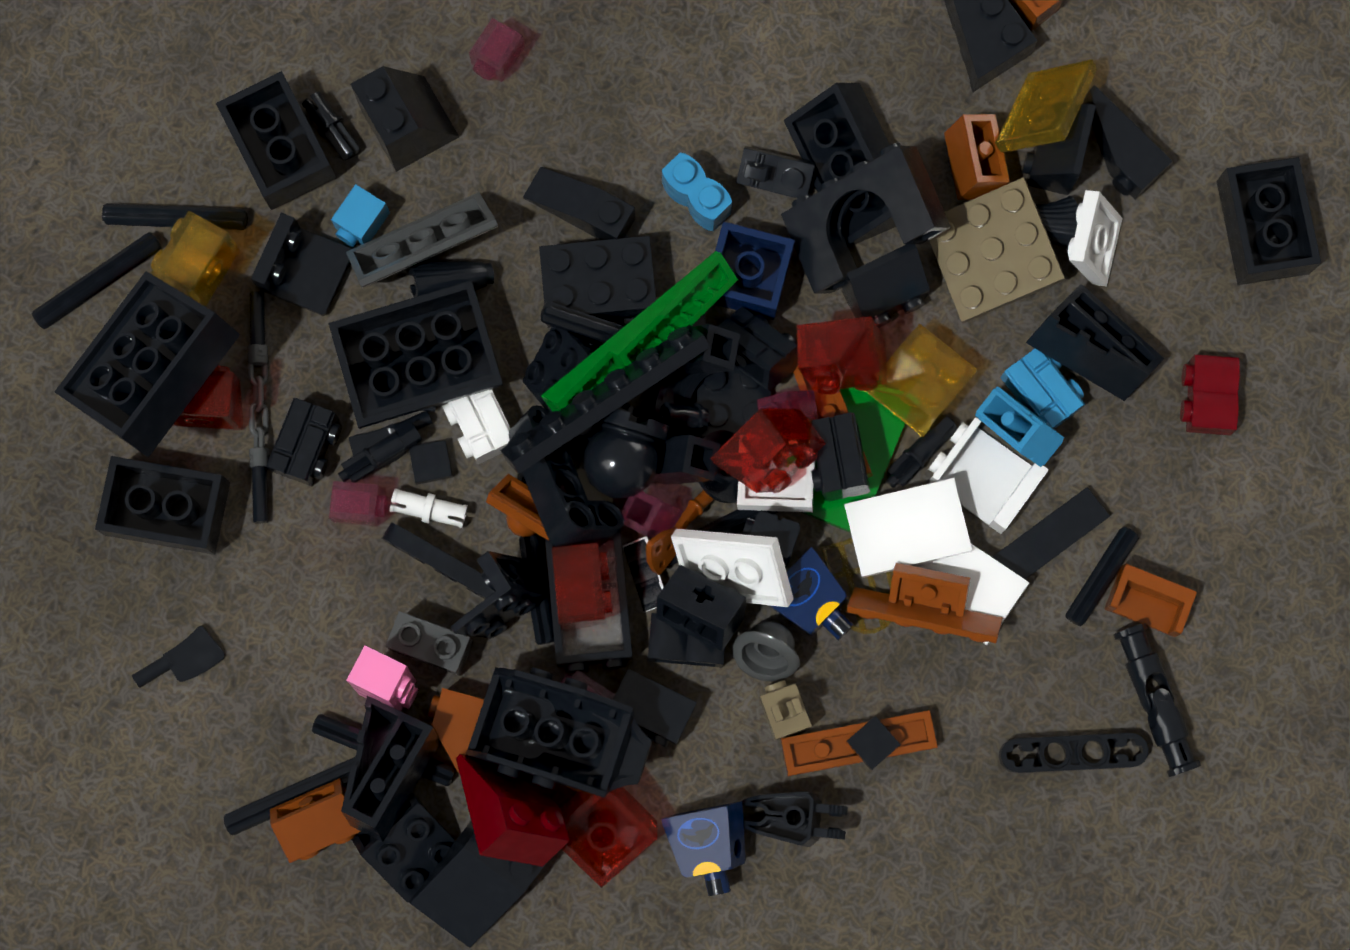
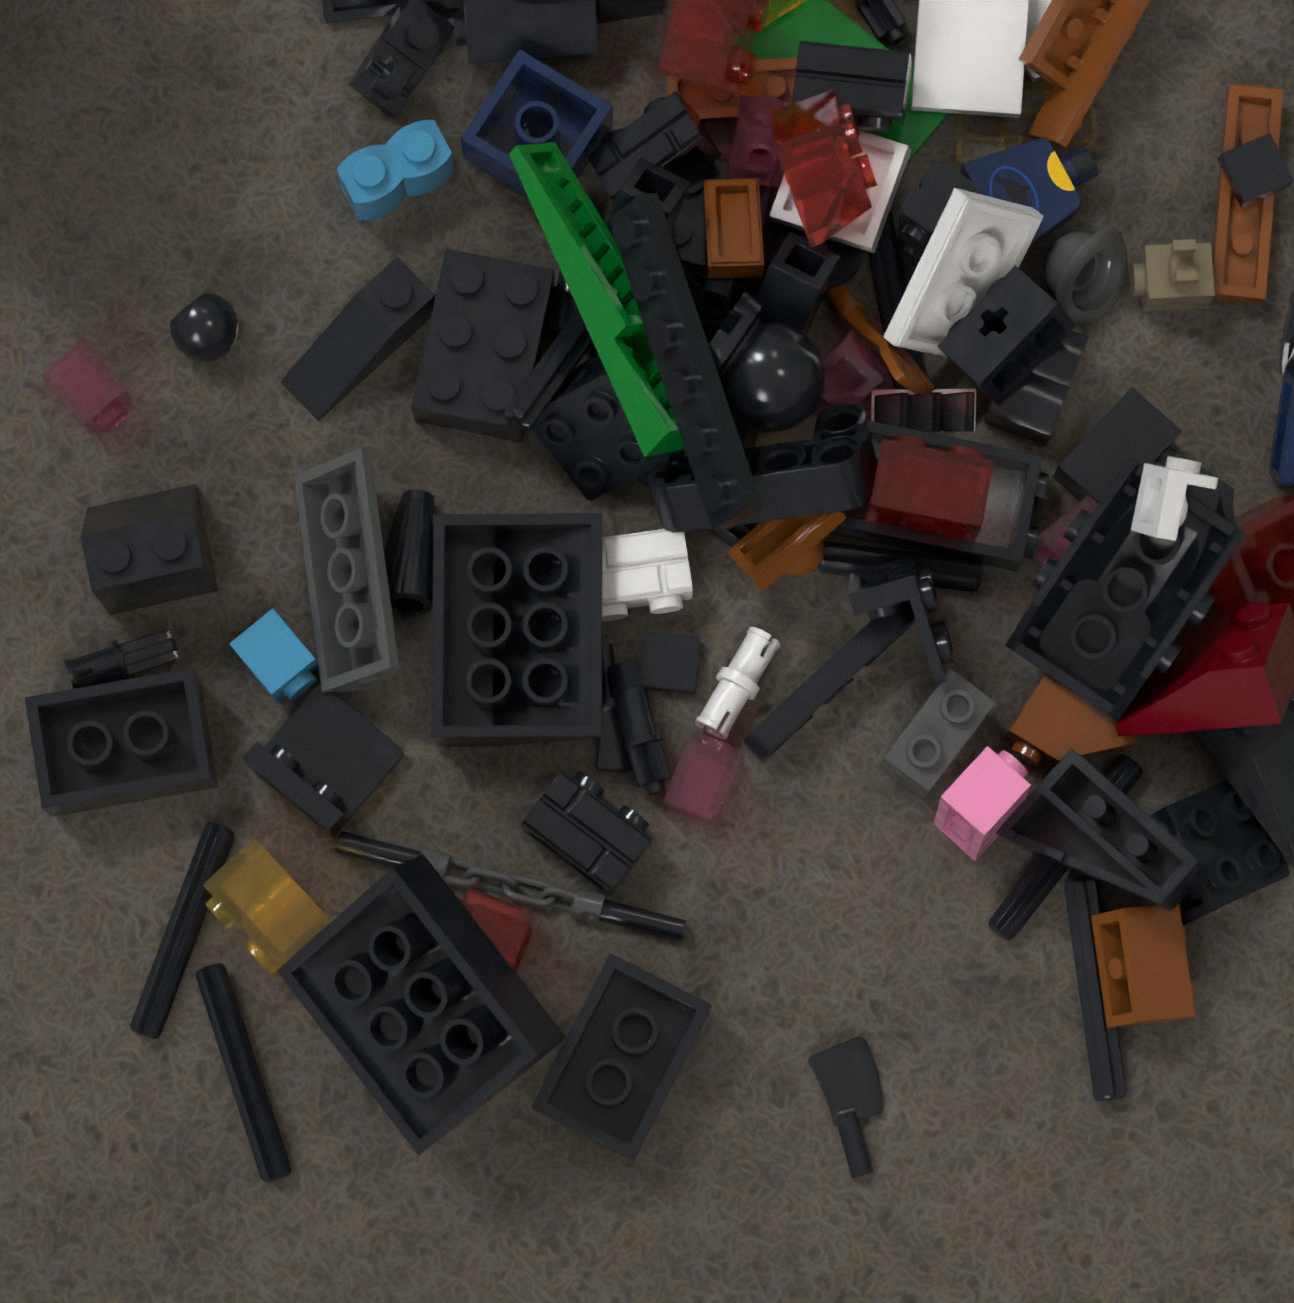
camera: 75 degrees left, 0 degrees up
(557, 108) = (205, 328): none -> black piece
(606, 733) = (1162, 498): none -> white bracket
(719, 411) = (733, 228): none -> dark orange tile

